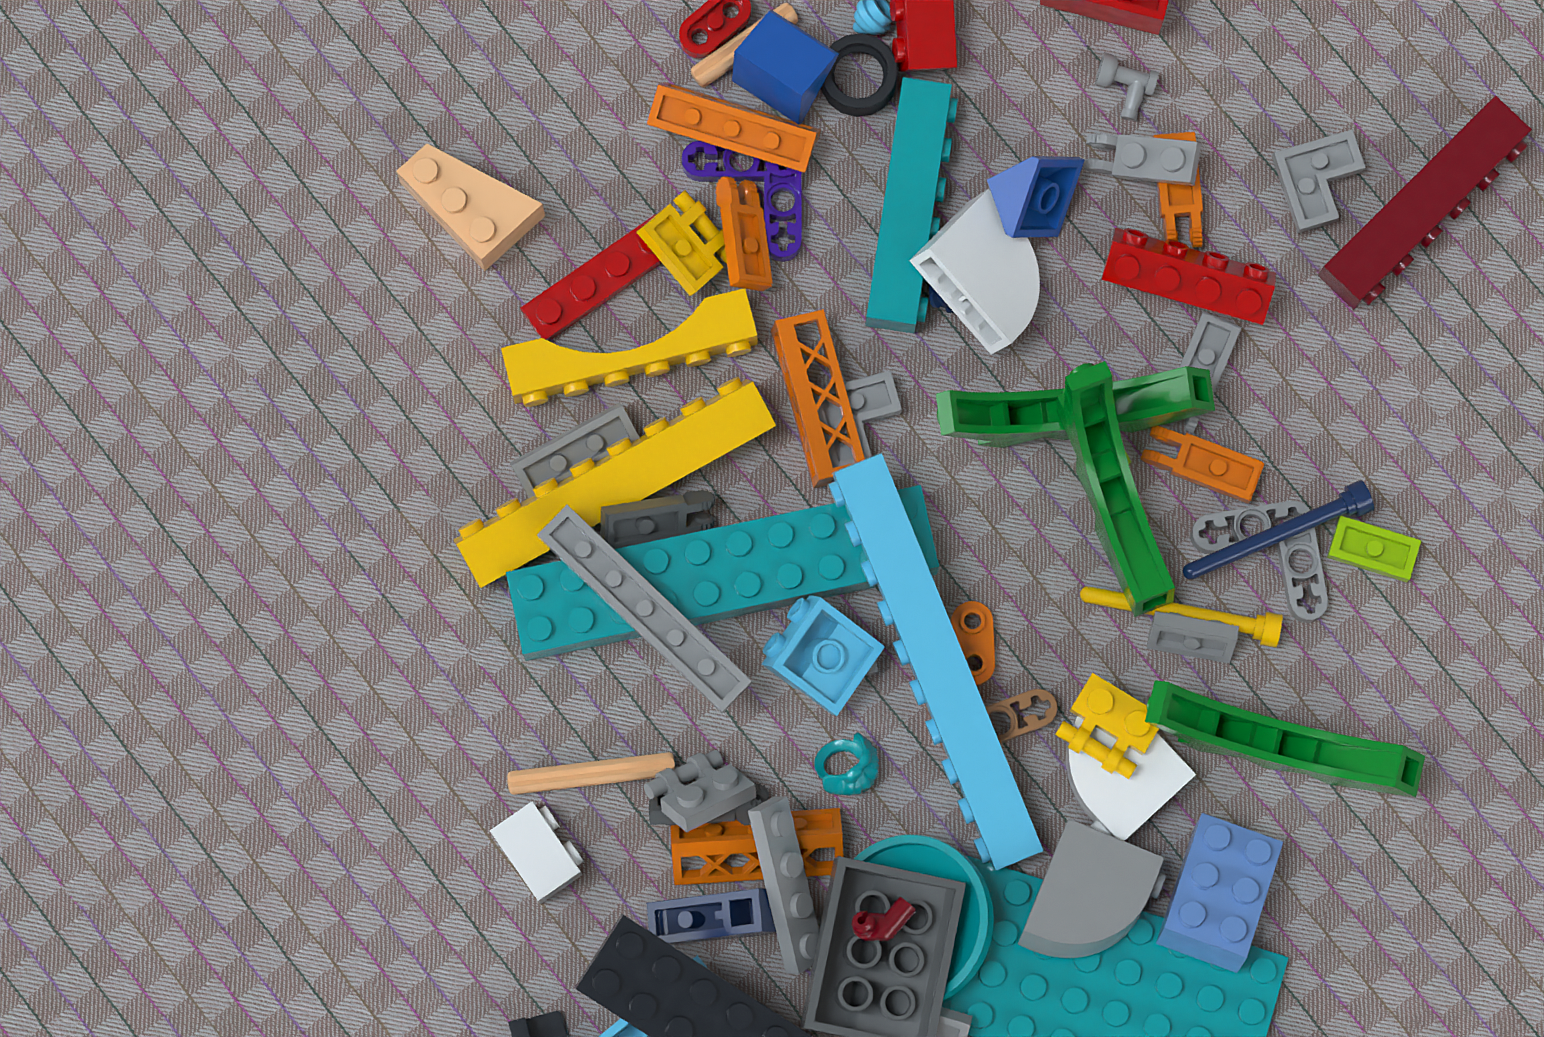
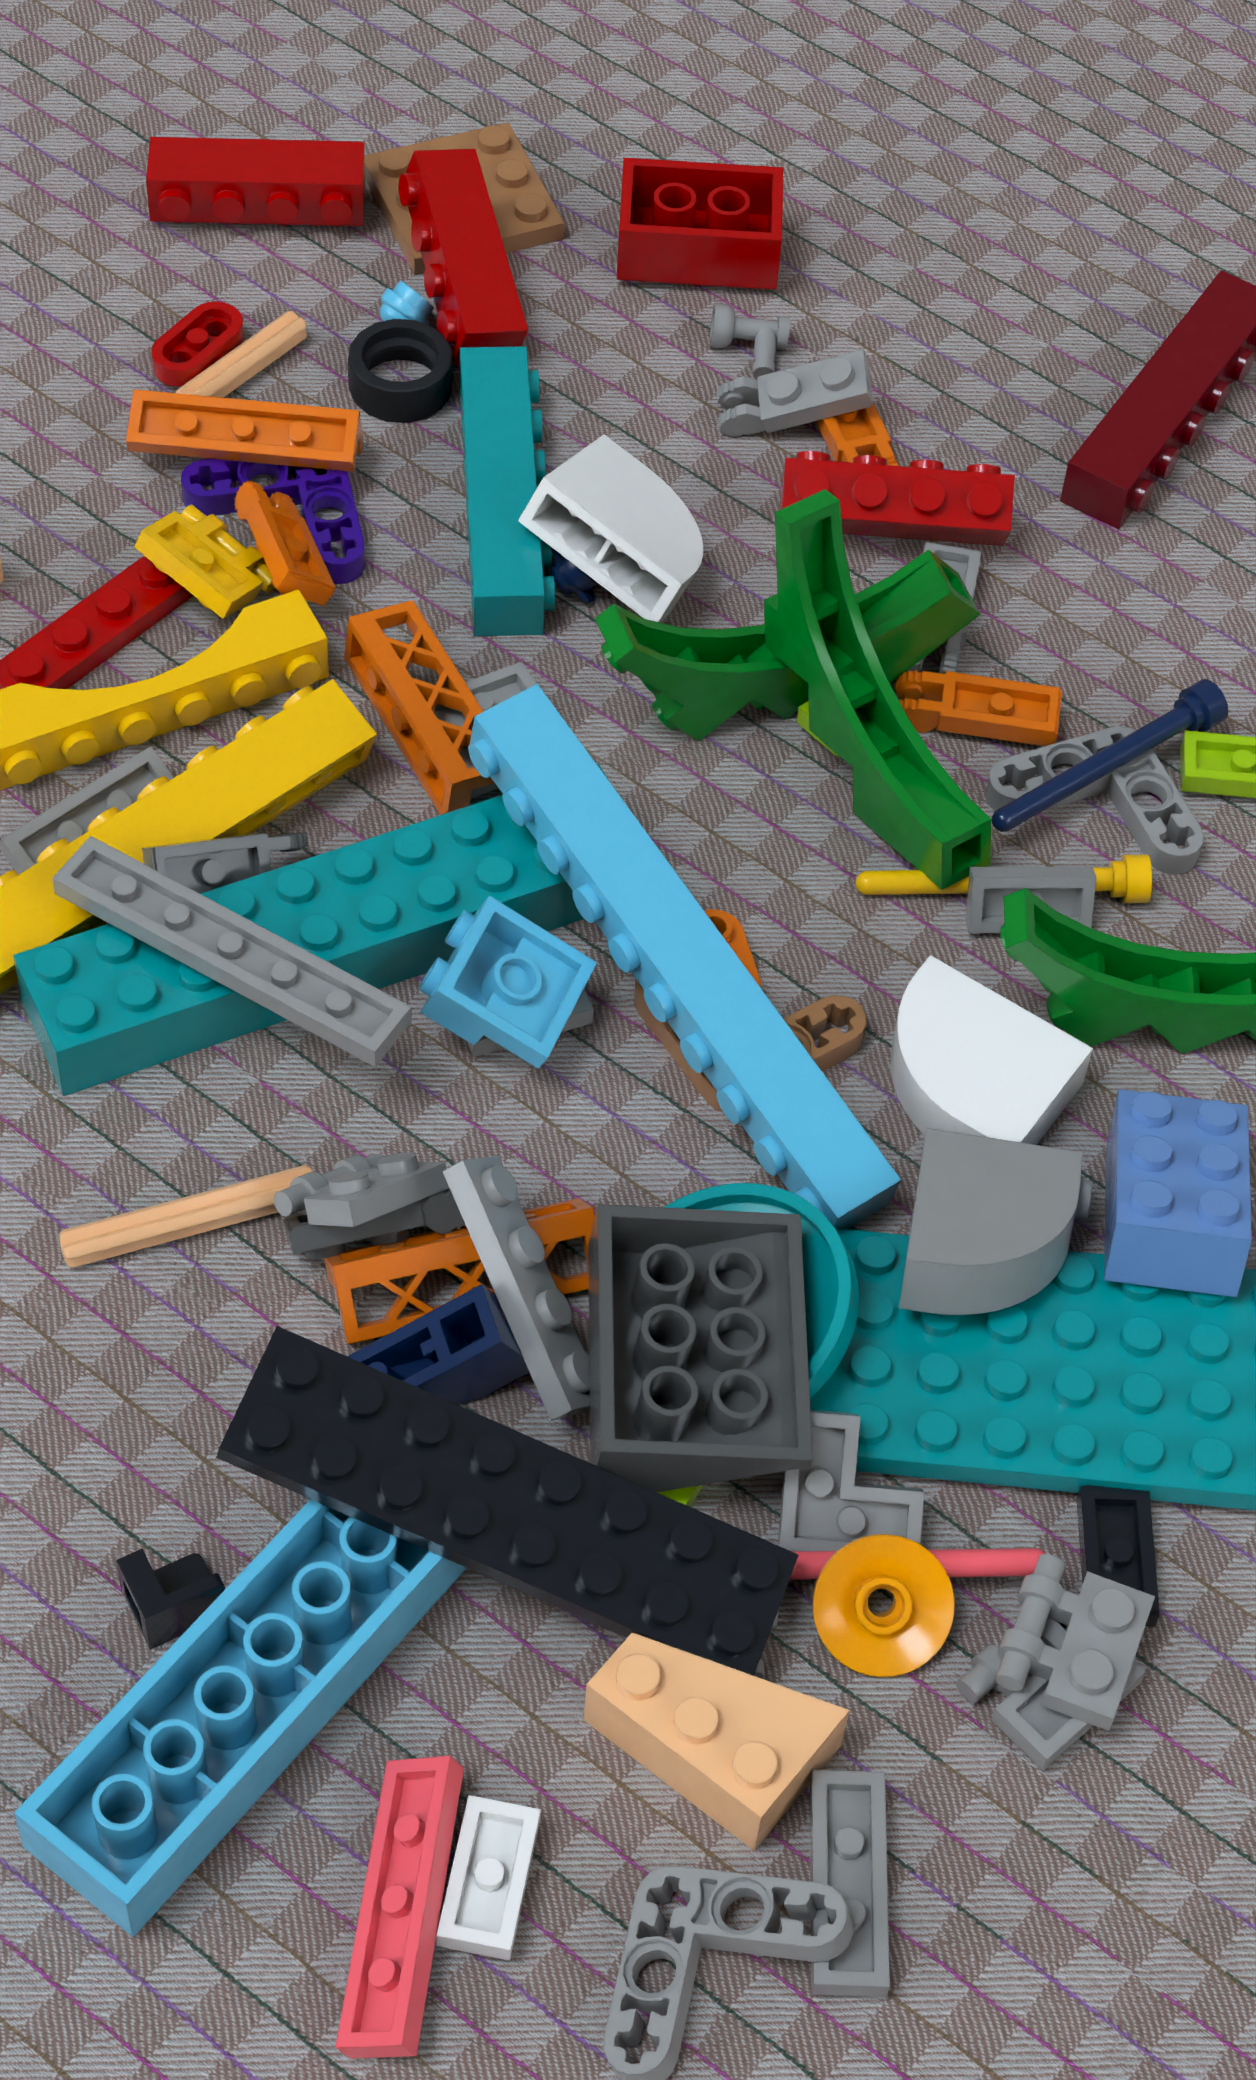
camera: 15 degrees left, 25 degrees down
(537, 852) = (123, 1327): white brick -> none
(782, 66) = (295, 356): blue slope -> none
(859, 777) = (593, 1146): teal piece -> none
(882, 925) = (689, 1283): dark red arm -> none
(1035, 195) = (669, 428): blue slope -> none
(1115, 714) = (957, 989): yellow plate -> none
(1305, 175) = (1016, 391): light grey plate -> none

